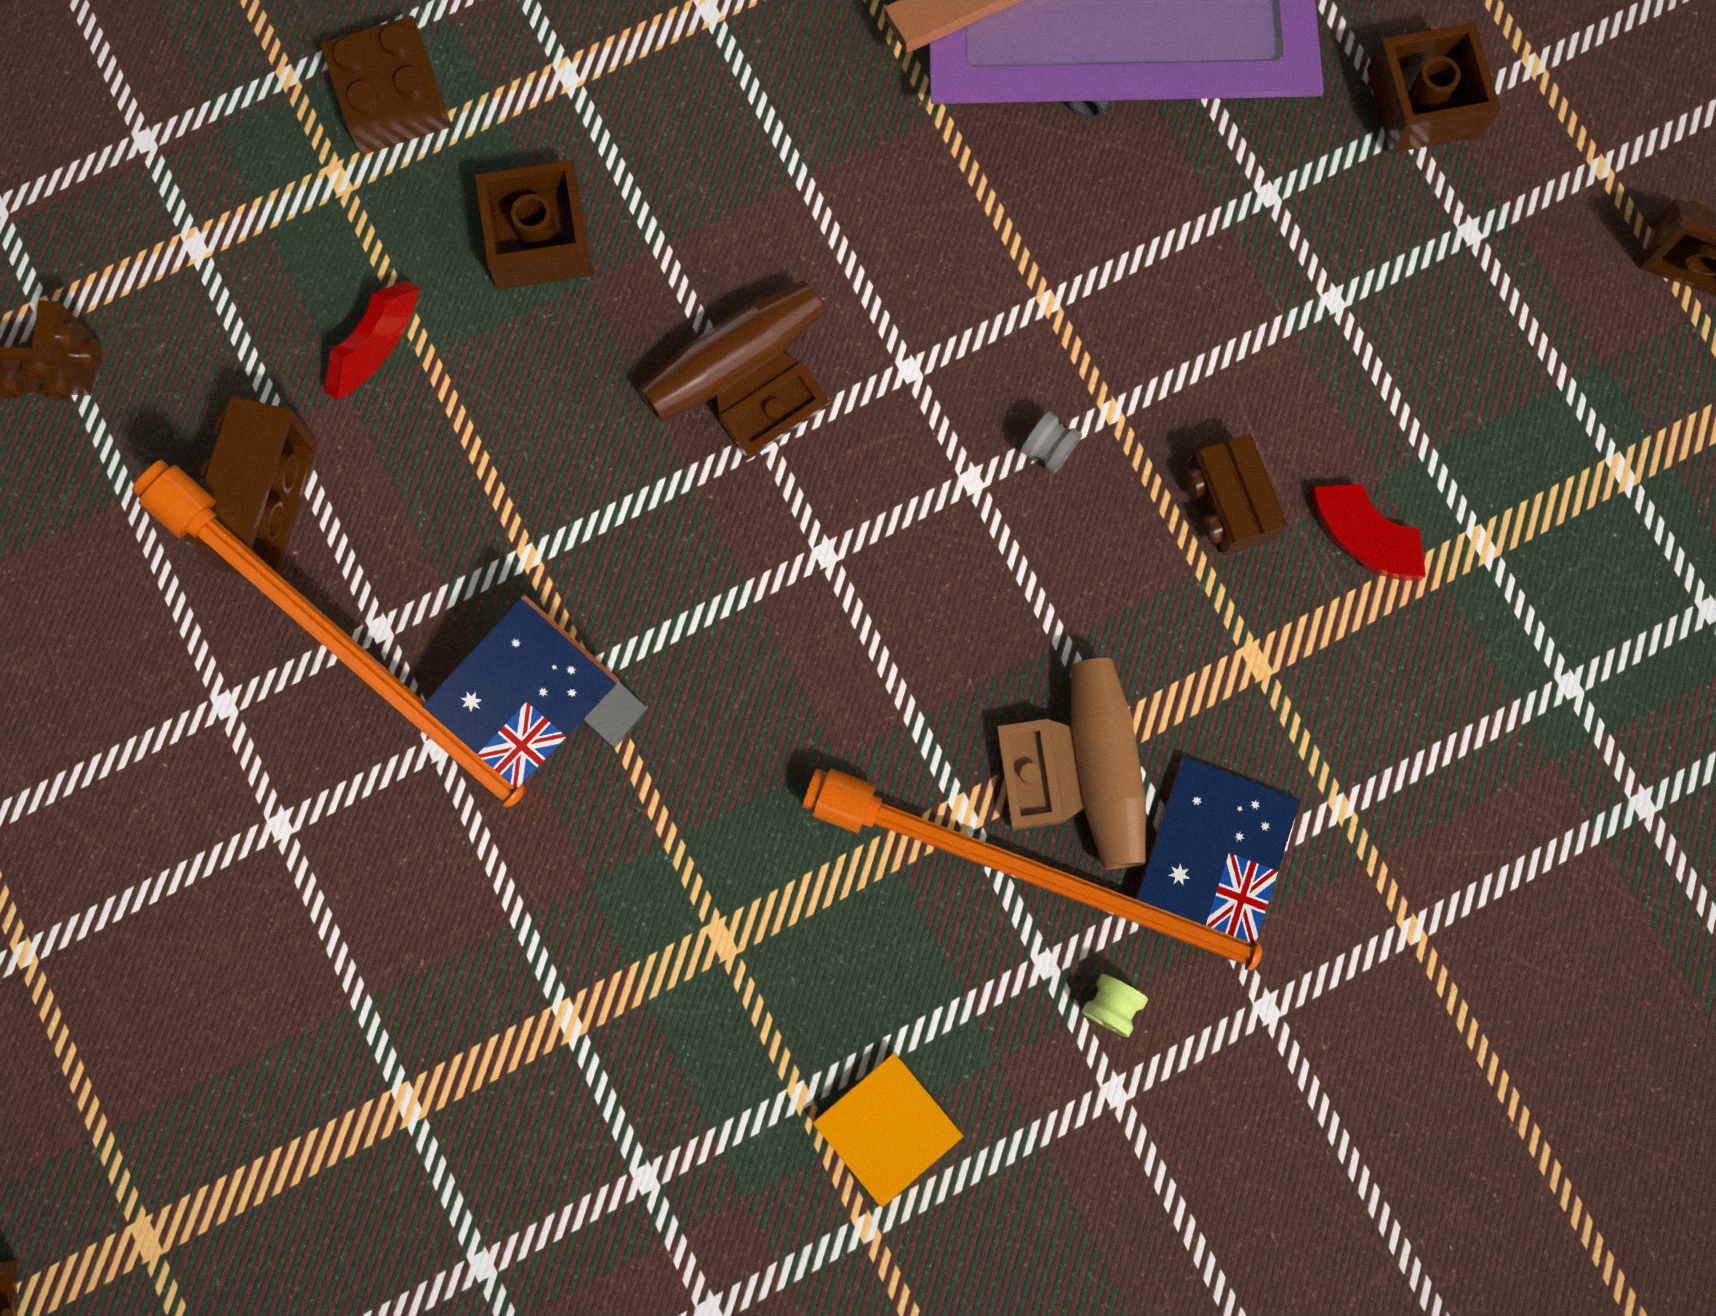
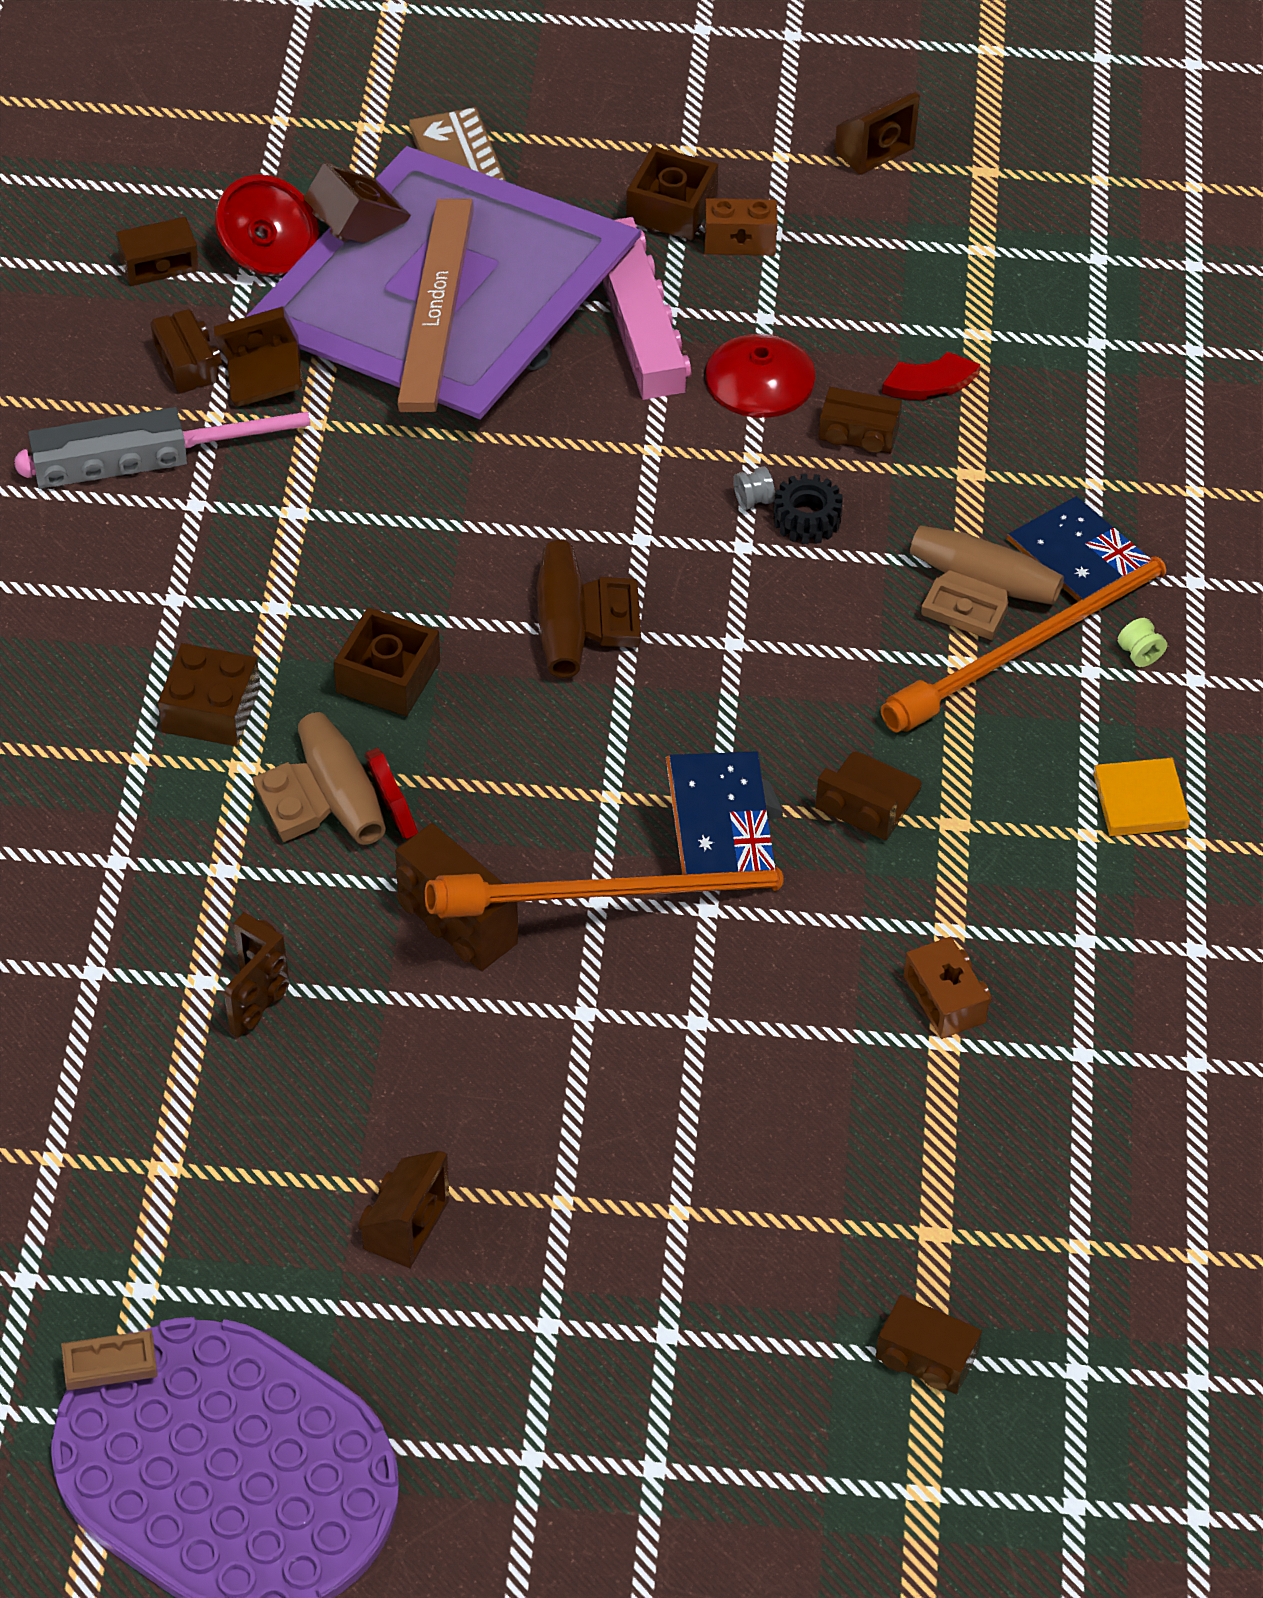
camera: 55 degrees left, 25 degrees down
(340, 267) = (329, 782): none -> medium nougat plate
(437, 1083) = (947, 987): none -> dark orange brick
(686, 825) = (867, 794): none -> reddish brown bracket
(1071, 489) = (806, 524): none -> black tyre
(1226, 173) = (646, 323): none -> bright pink brick
(1235, 373) = (760, 375): none -> red dish
(1440, 191) = (740, 227): none -> dark orange brick

